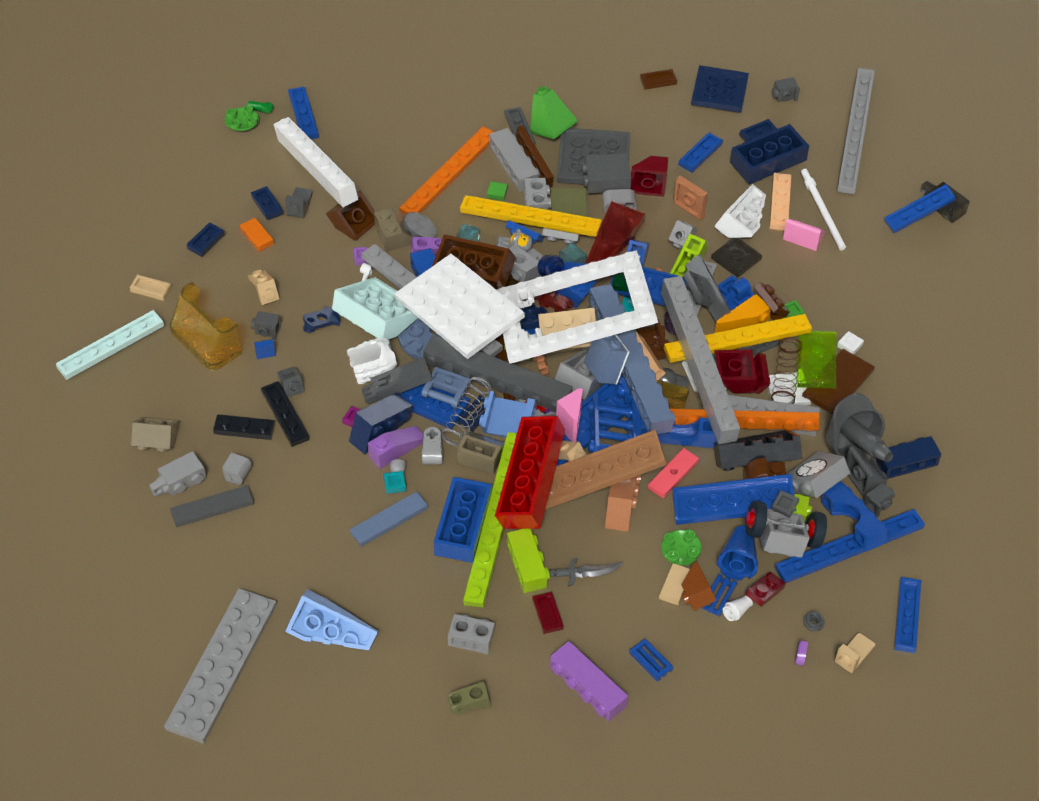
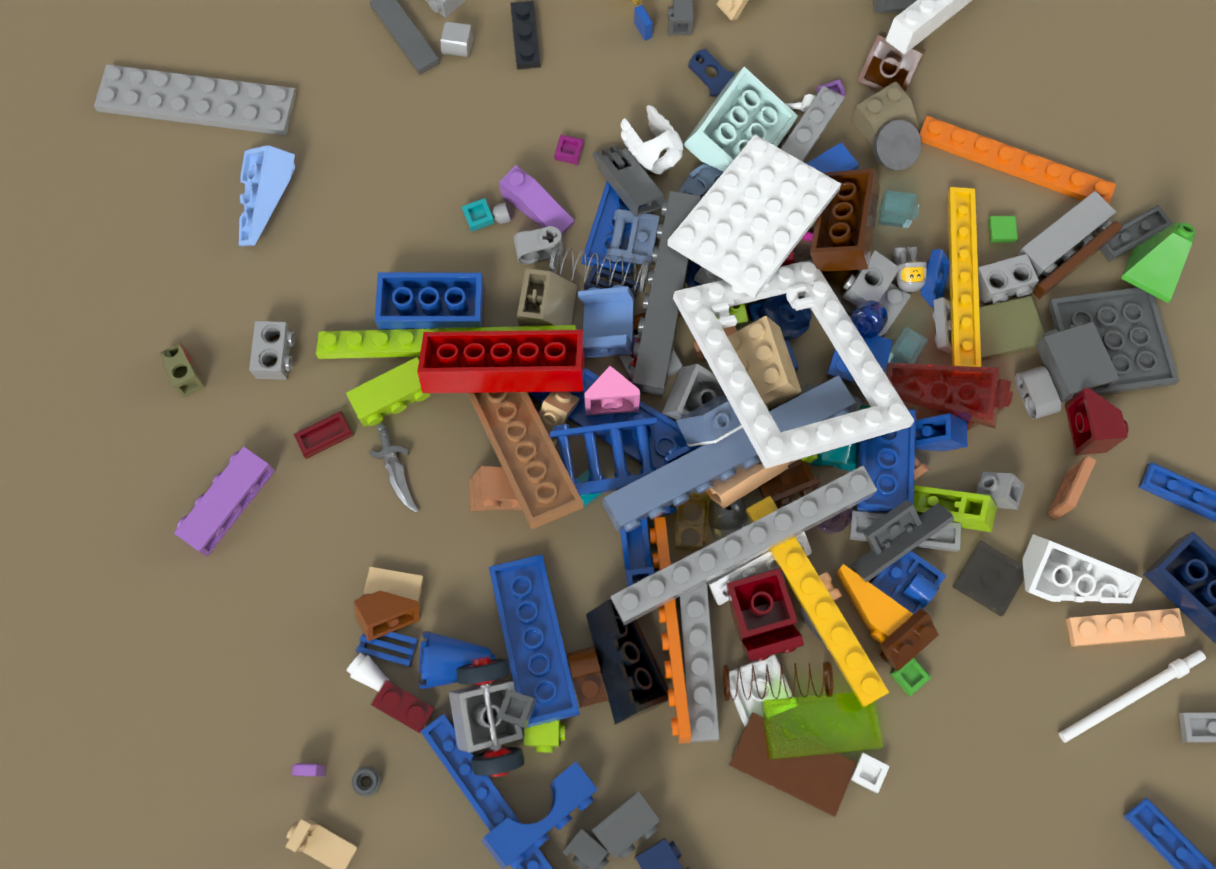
camera: 80 degrees right, 20 degrees up
(285, 414) = (556, 72): black tile -> none
(291, 381) = (603, 61): dark grey bracket -> none
(379, 418) = (564, 174): dark blue wedge -> none
(388, 519) = (425, 223): sand blue tile -> none
(423, 243) = (867, 157): medium lavender leg -> none
(561, 304) = (816, 346): clear red hinge -> none
(661, 672) = (267, 598): blue tile -> none
(673, 473) = (584, 559): coral tile -> none
(681, 547) = (451, 582): bright green dish -> none
(803, 234) = (1071, 672): bright pink slope -> none
(818, 473) = (599, 751): light grey brick -> none
(857, 425) = (688, 798): dark grey piece -> none

